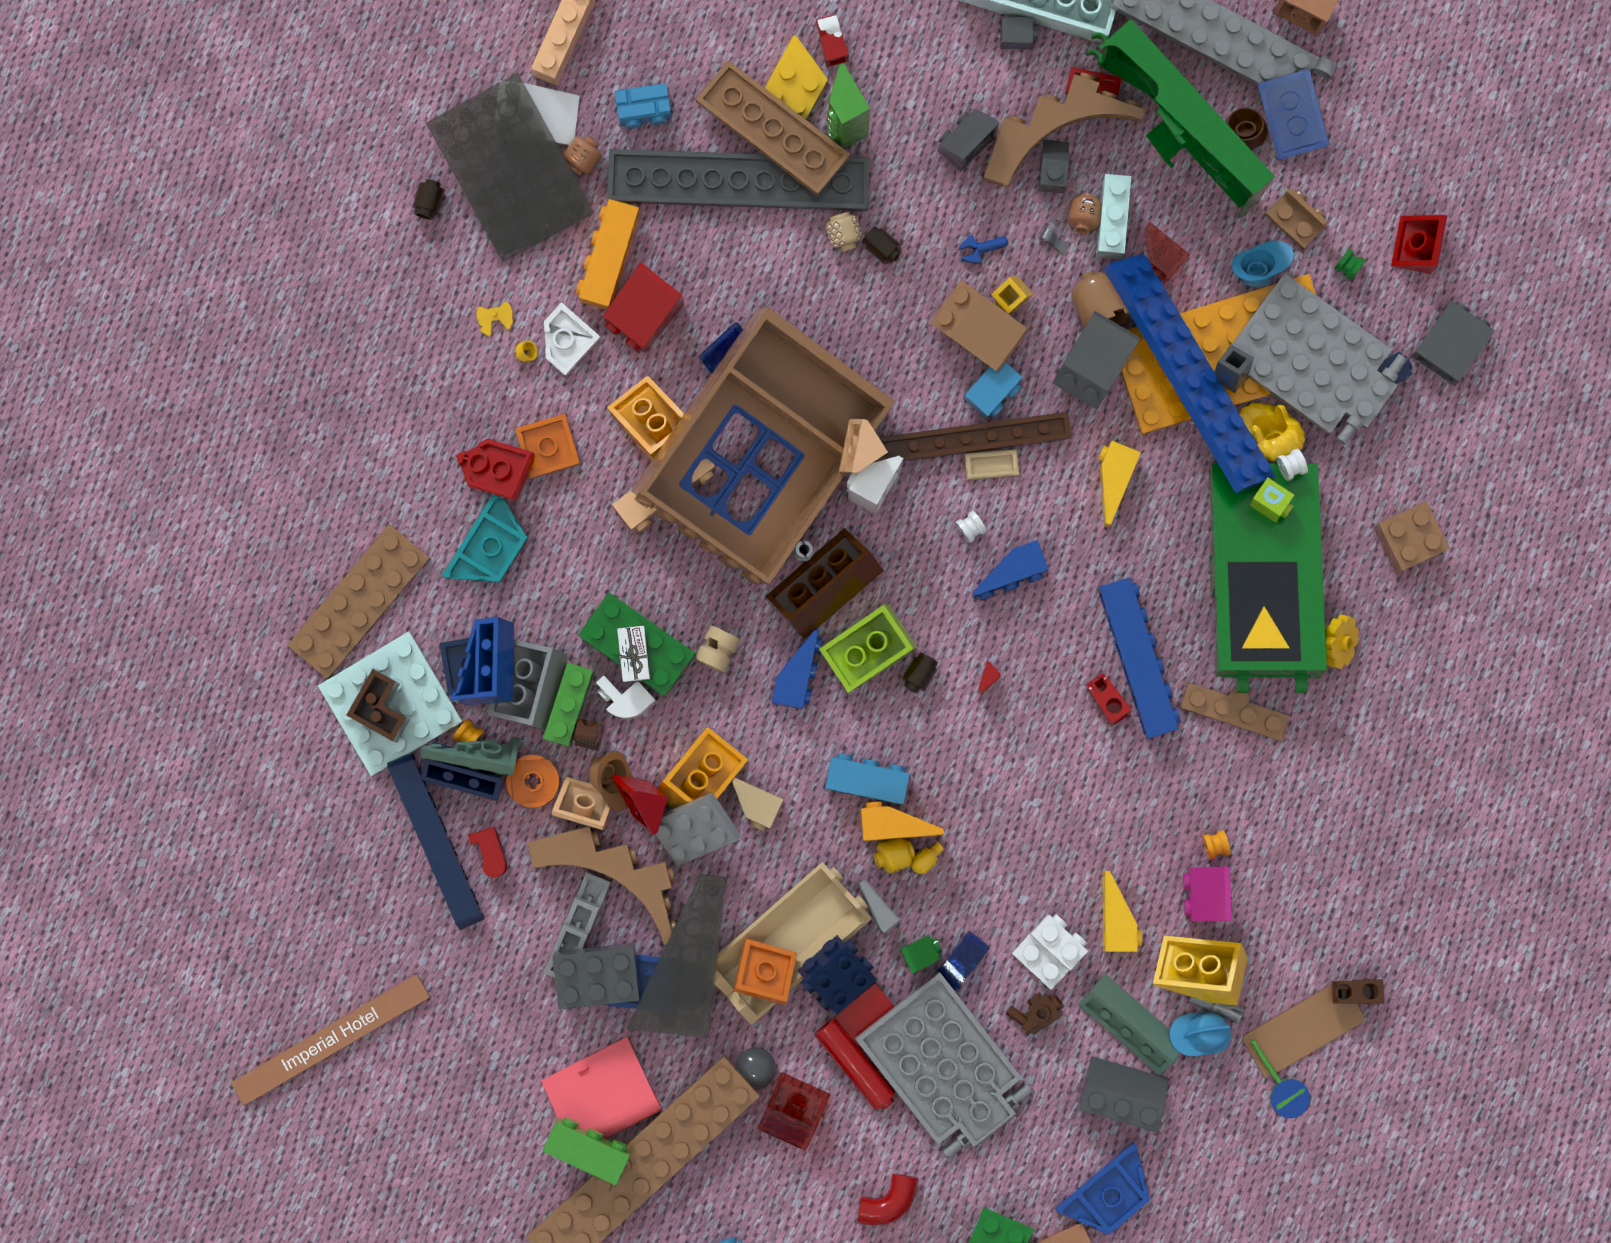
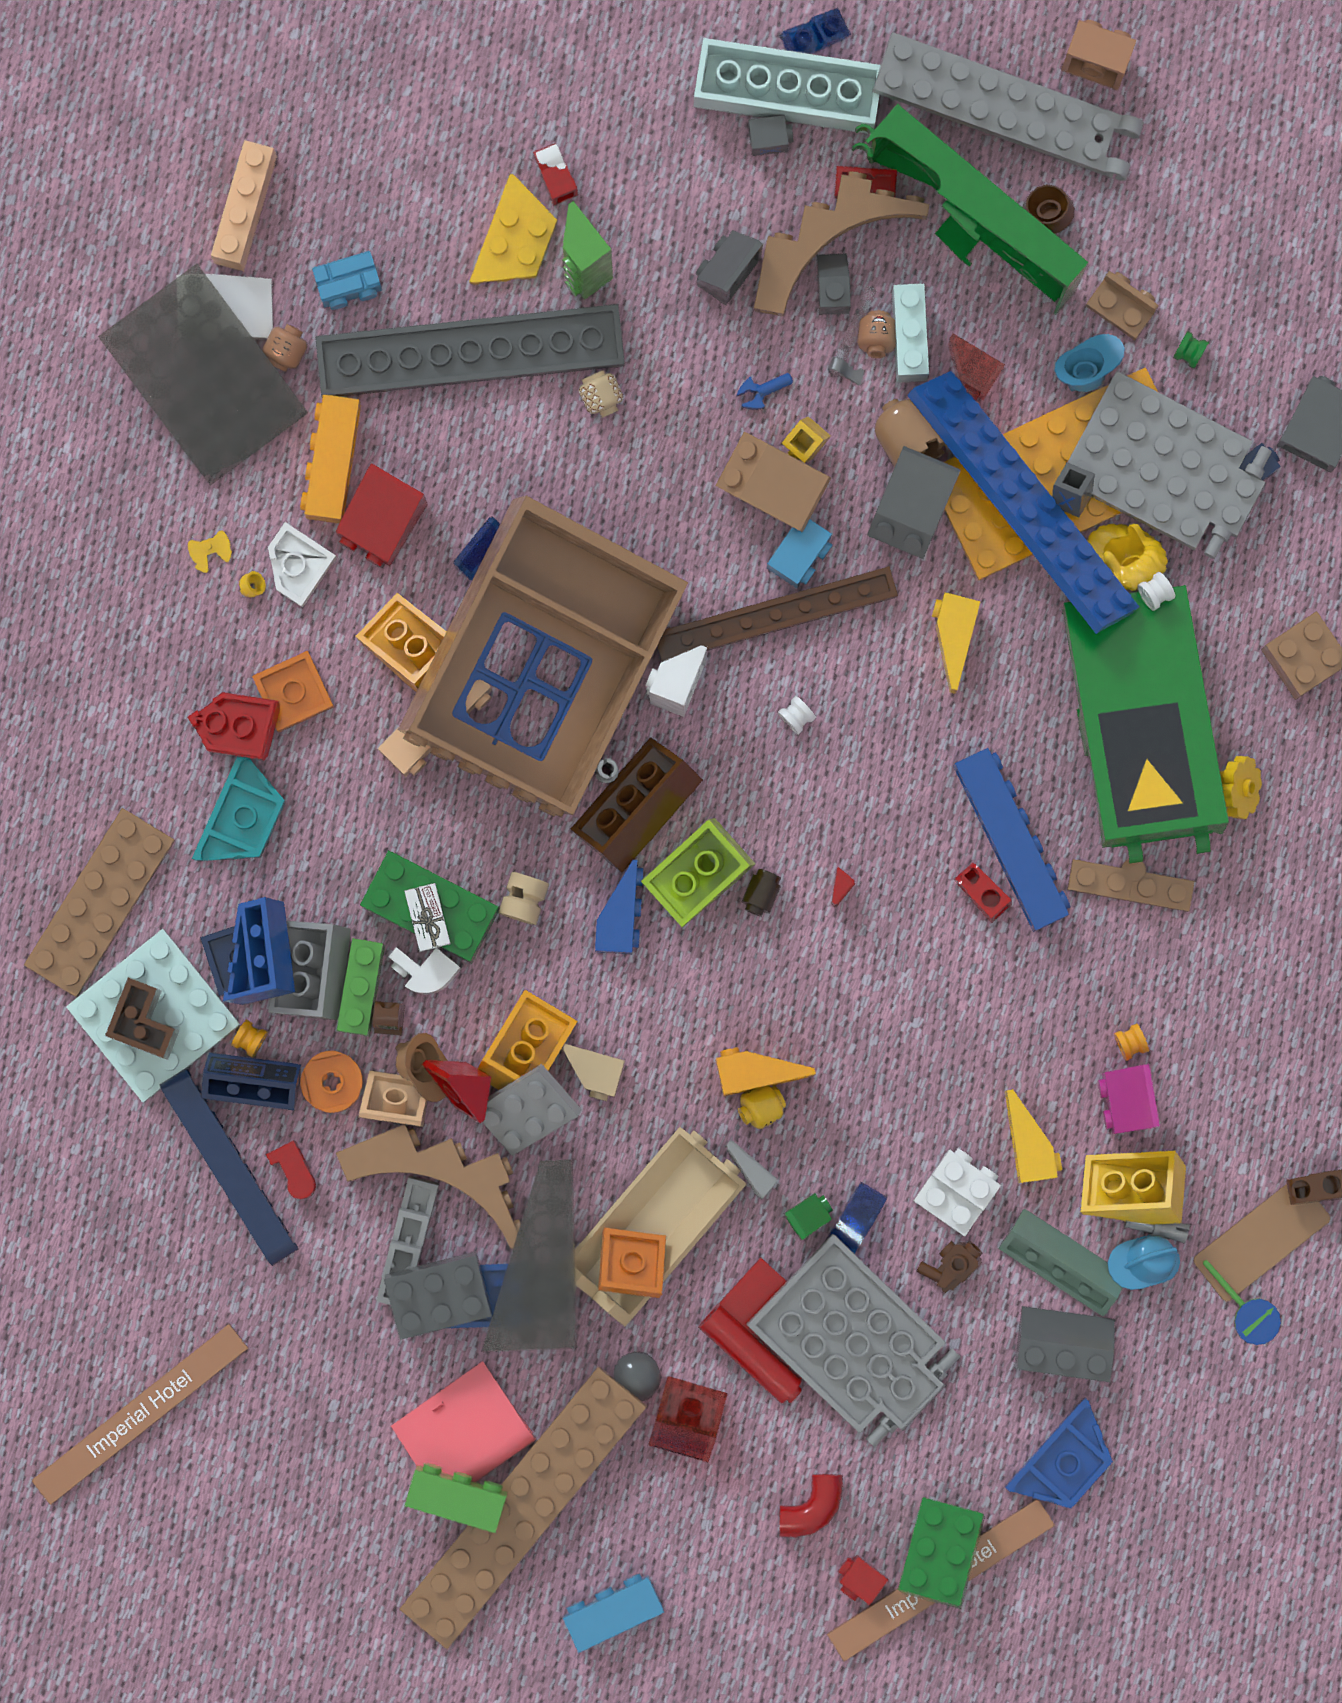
camera: 10 degrees left, 0 degrees up
(428, 199) = (112, 424): dark brown brick -> none
(477, 755) = (263, 1060): sand green wing -> none
(773, 128) = (501, 285): medium nougat plate -> none
(836, 974) = (715, 1254): dark blue brick -> none
(860, 447) = (656, 641): light nougat slope -> none
(867, 779) = (718, 1024): dark azure brick -> none
(882, 245) = (647, 403): dark brown brick -> none
(926, 859) = (799, 1106): yellow cylinder -> none
(991, 464) = (810, 640): tan tile -> none
(1020, 564) = (857, 752): blue slope -> none
(1272, 500) = (1139, 636): lime brick -> none
(1293, 114) = (1101, 185): blue plate -> none
(1419, 242) = (1267, 313): red slope -> none

